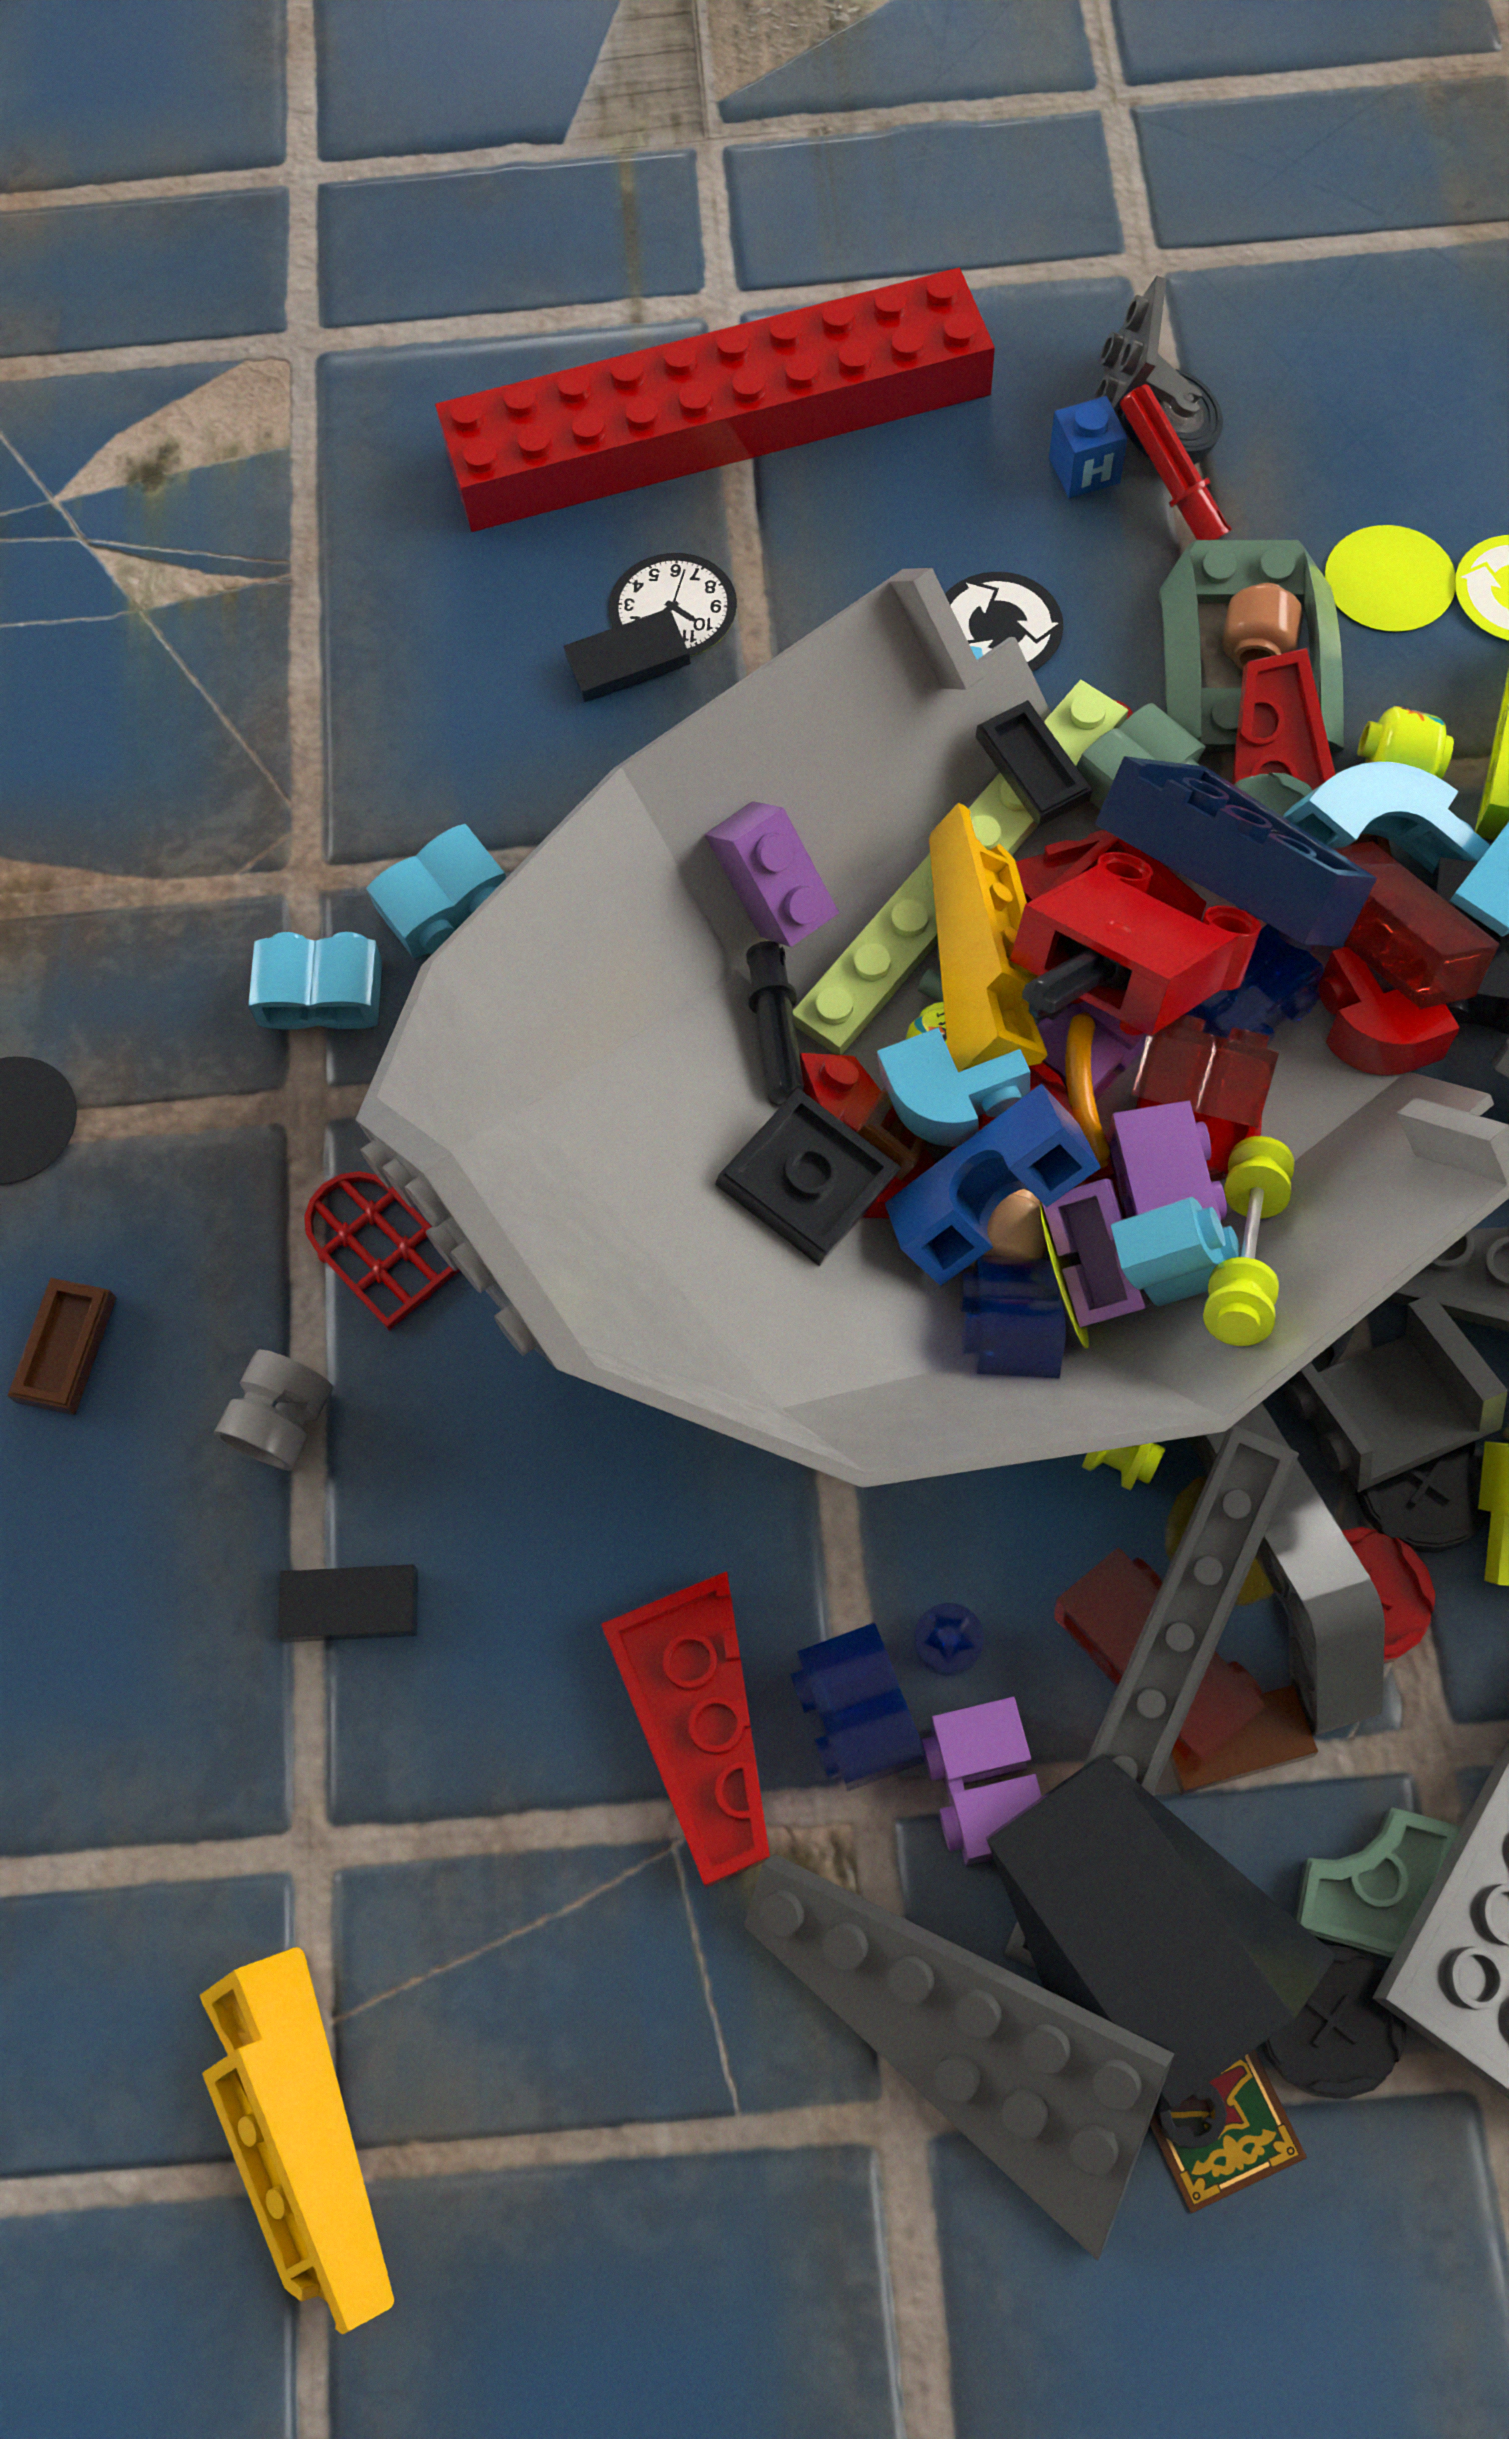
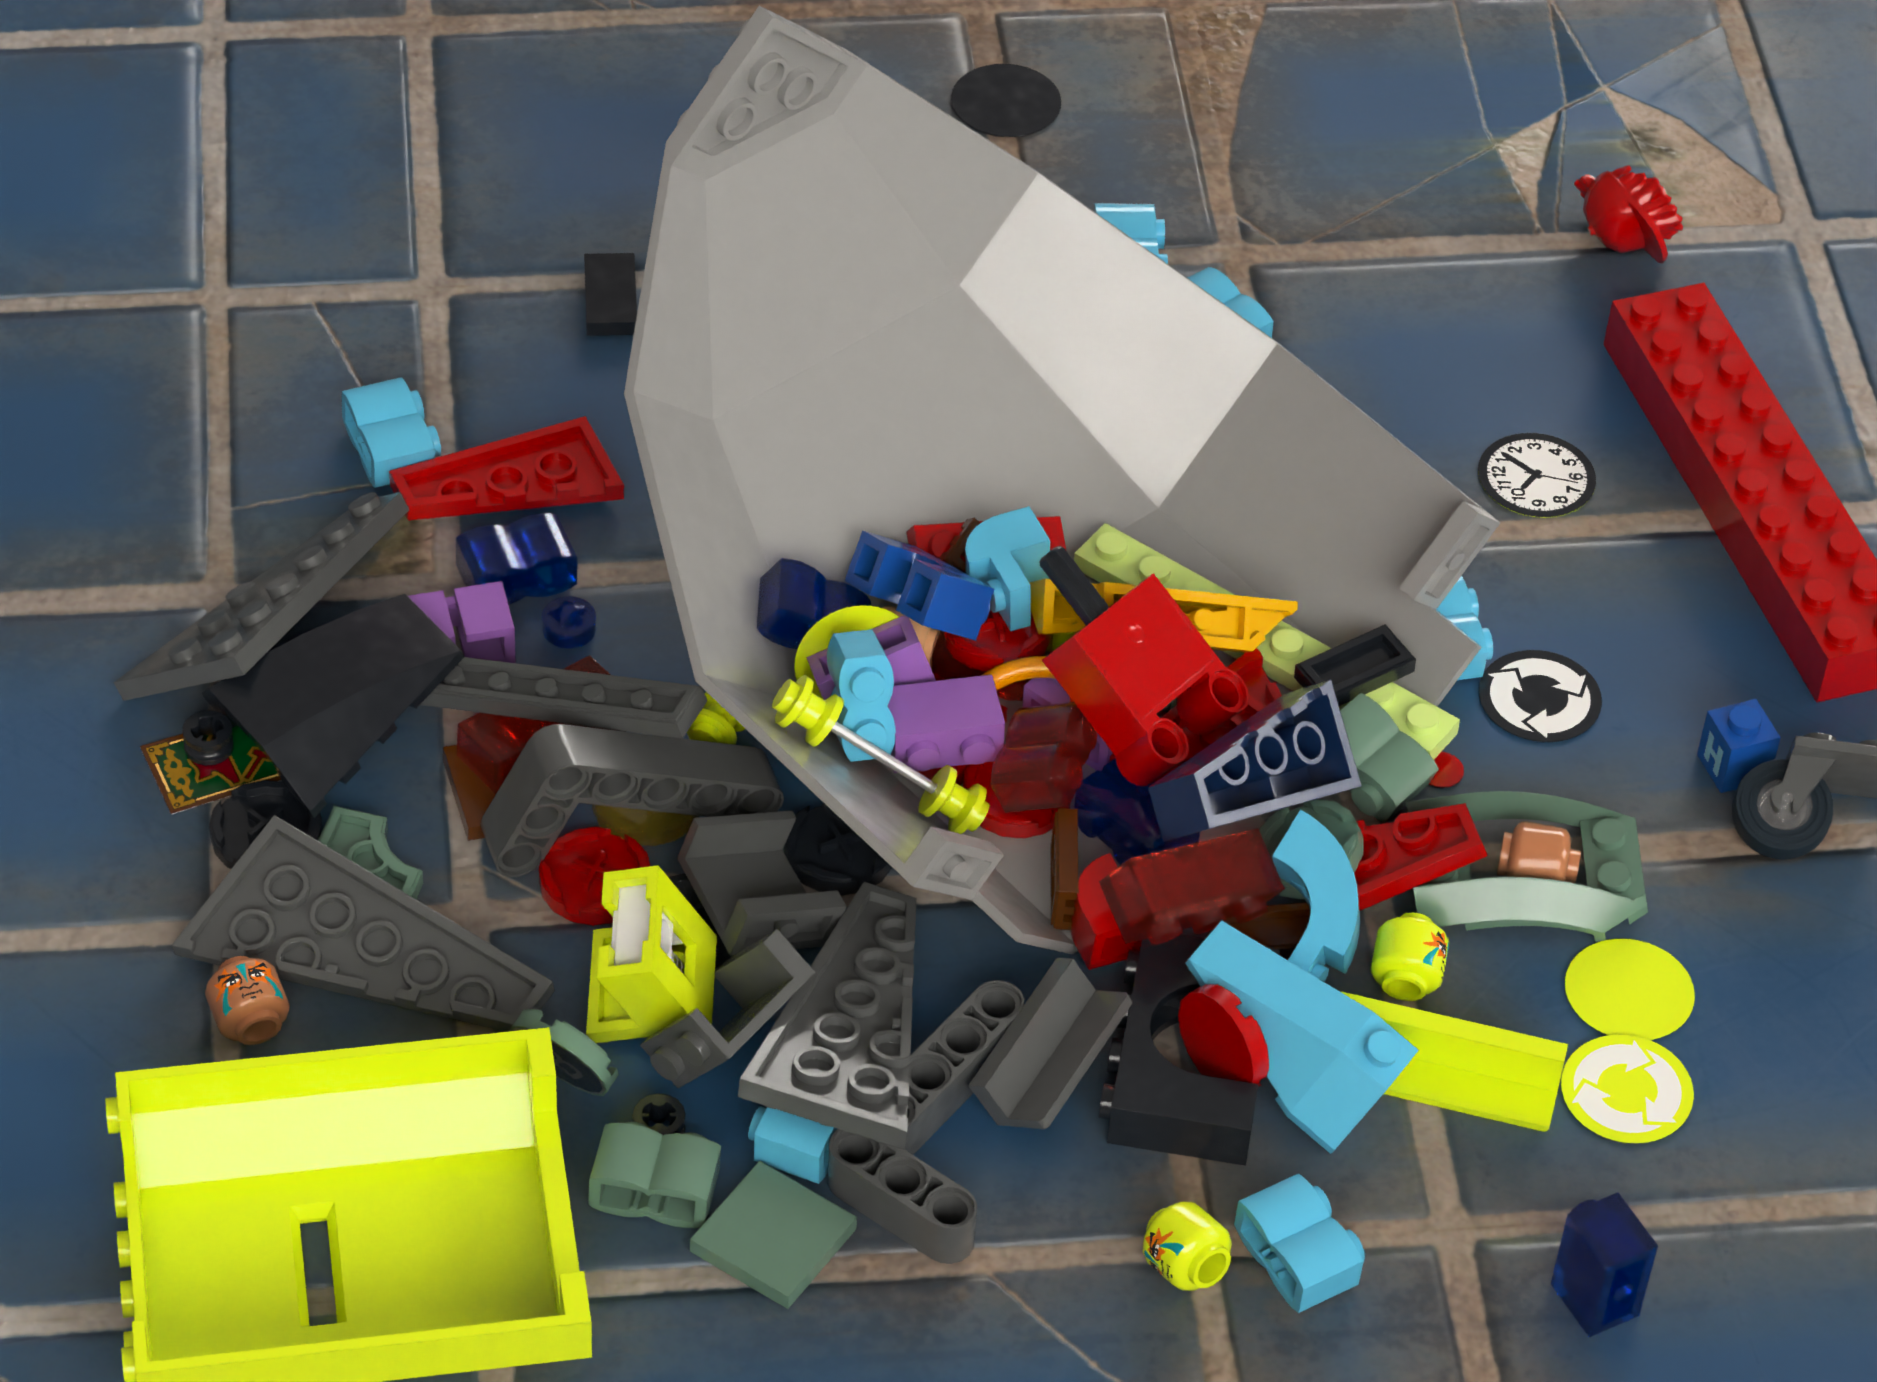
camera: 80 degrees right, 20 degrees down
(294, 2137) = (242, 277): yellow wedge -> none
(300, 472) = (1629, 211): none -> red hair
(622, 1889) = (388, 428): none -> medium azure brick
(627, 654) = (1471, 437): black tile -> none
(772, 873) = (1219, 484): medium lavender brick -> none
(773, 1004) = (1092, 505): black axle -> none
(808, 1176) = (927, 482): black tile -> none
(1174, 465) = (1710, 794): red axle -> none
(1337, 1067) = (1064, 867): none -> reddish brown tile

